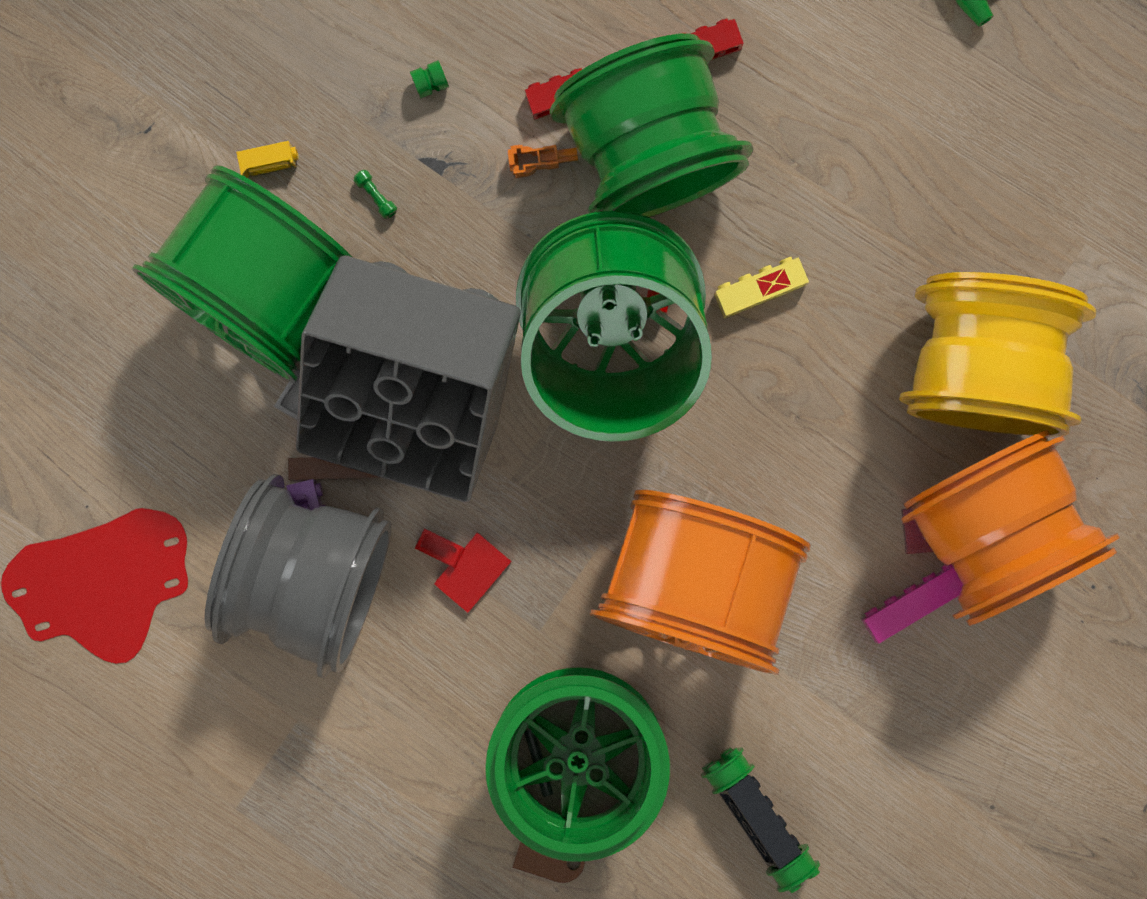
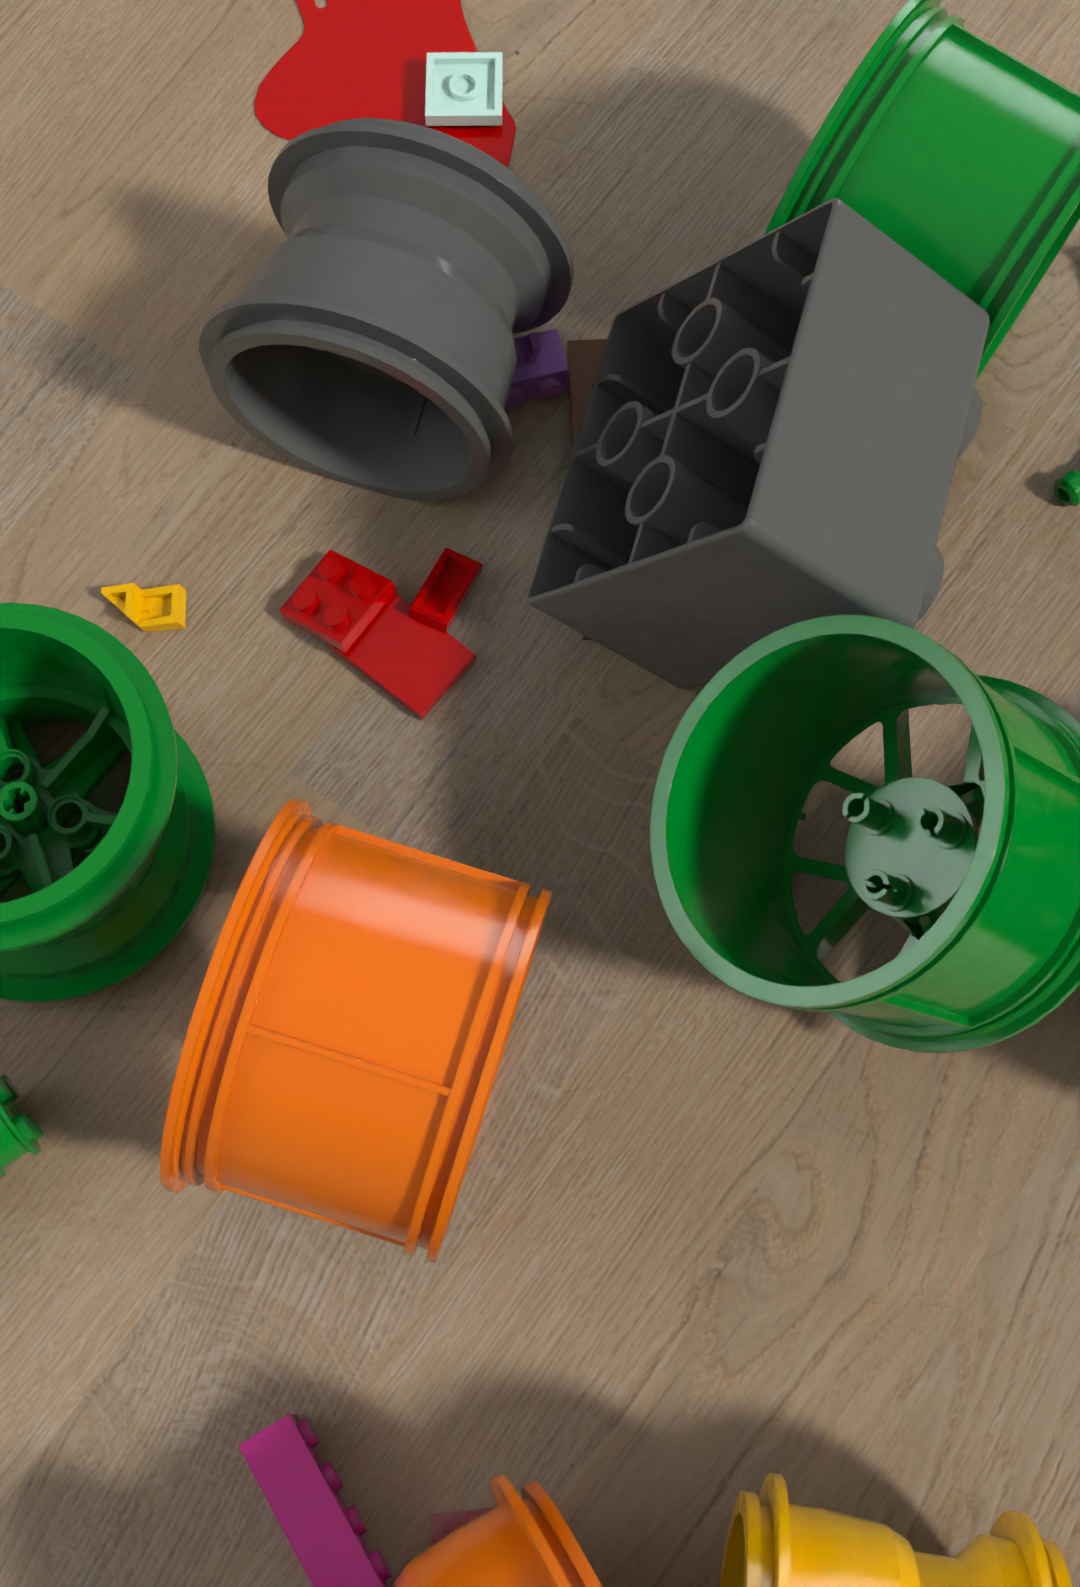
camera: 85 degrees right, 15 degrees down
(117, 537) = (464, 89): none -> light aqua plate
(444, 709) = (150, 608): none -> yellow slope
(445, 606) = (338, 600): none -> red plate
(761, 287) = (986, 1189): light yellow brick -> none

